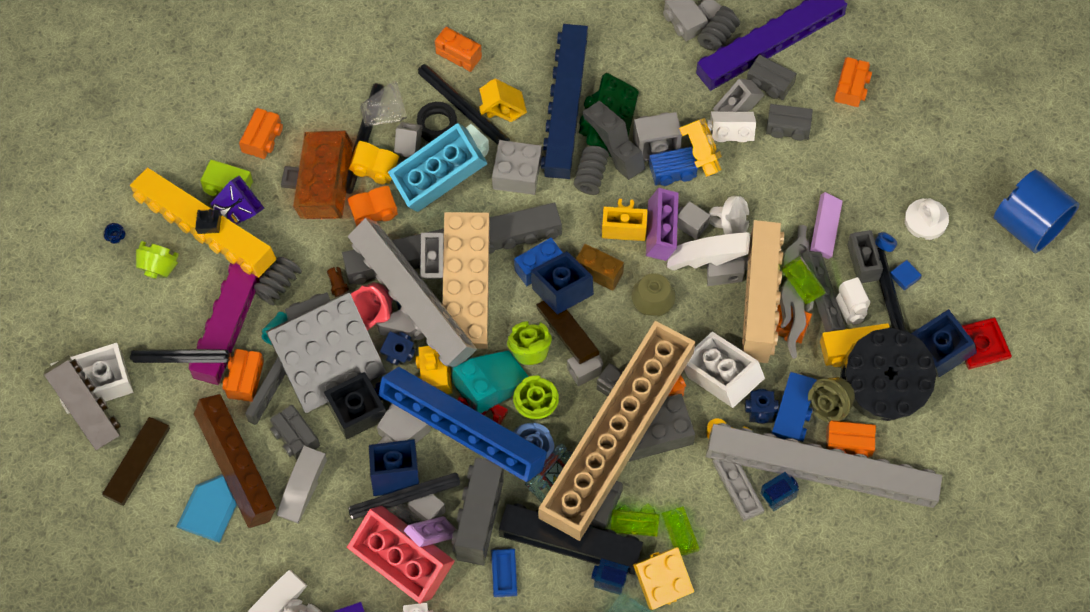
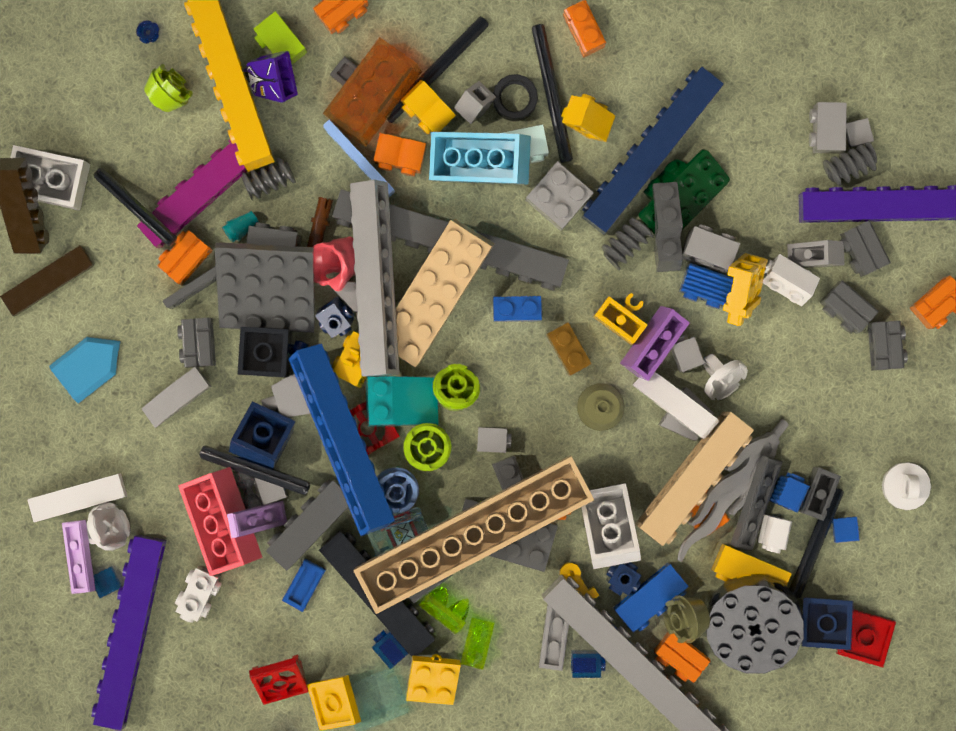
camera: 30 degrees right, 25 degrees up
(208, 221) = (230, 87): black tile -> none
(234, 461) = (129, 338): reddish brown brick -> none
(326, 223) = (354, 154): none -> light blue tile
(384, 106) = (475, 49): clear wing -> none
(432, 255) = (416, 251): light grey brick -> none
(562, 282) = (522, 347): dark blue brick -> none
(569, 333) = (499, 395): dark brown tile -> none
(803, 280) = (739, 490): clear neon green tile -> none
(826, 225) = (807, 436): lavender tile -> none
(836, 131) = (886, 345): none -> dark grey brick
(842, 265) = (789, 492): none -> blue brick
(885, 242) = (850, 487): blue tile -> none

